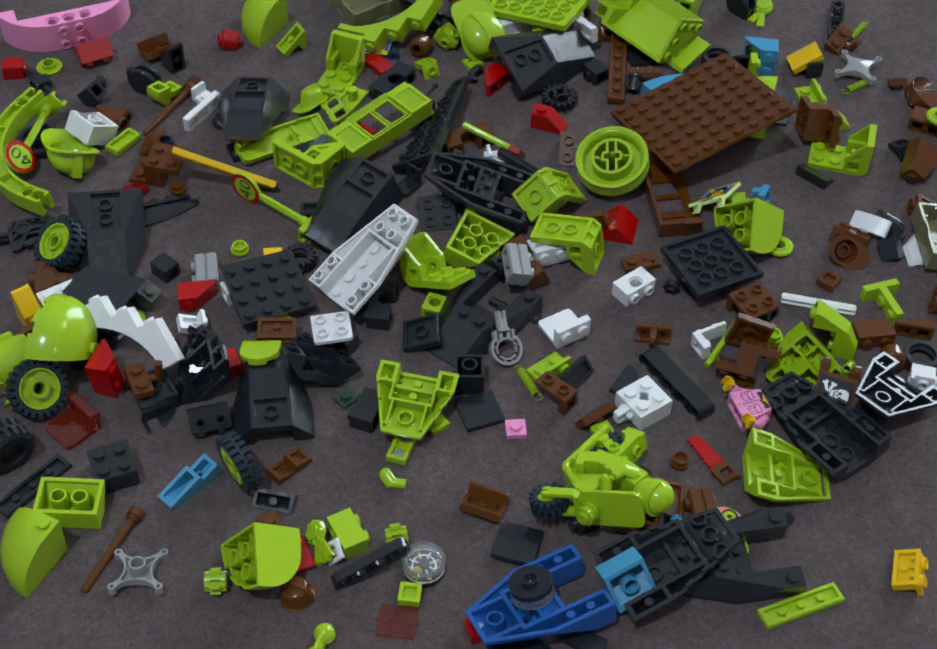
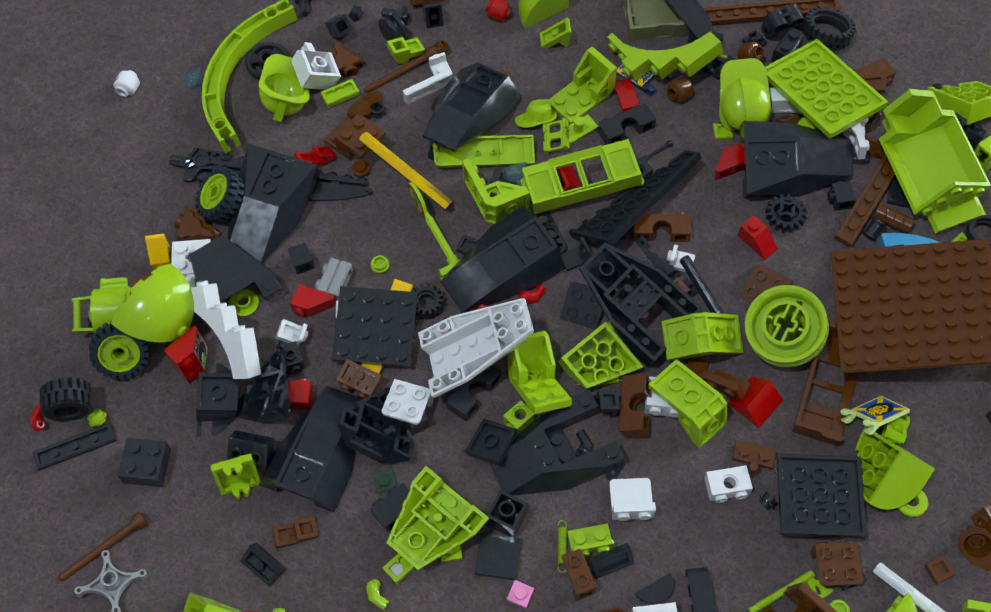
camera: 30 degrees right, 15 degrees up
(19, 154) = (236, 76): lime piece -> none
(30, 548) = (32, 519): lime brick -> none
(43, 454) = (97, 418): none -> lime plate
(72, 501) = (89, 484): lime slope -> none
(74, 423) = (137, 396): clear red bracket -> none
(140, 381) = (208, 382): reddish brown plate -> none
(190, 481) = (201, 509): dark azure slope -> none
(213, 424) = (242, 482): none -> lime piece
(239, 461) = (243, 516): black wheel -> none
(260, 352) = (330, 397): lime tile -> none
(269, 518) = (246, 586): reddish brown plate -> none
(428, 67) = (672, 119): lime bracket -> none
(447, 36) = (710, 90): lime brick -> none
(476, 69) = (715, 144): black arm -> none
(493, 139) = (698, 260): lime piece -> none
(509, 337) = (563, 479): light grey pin -> none
(517, 264) = (618, 411): light grey brick -> none
(659, 334) = (714, 550): reddish brown hips -> none
(701, 338) = (757, 588): white bracket -> none
(762, 193) = (929, 431): dark azure tile -> none

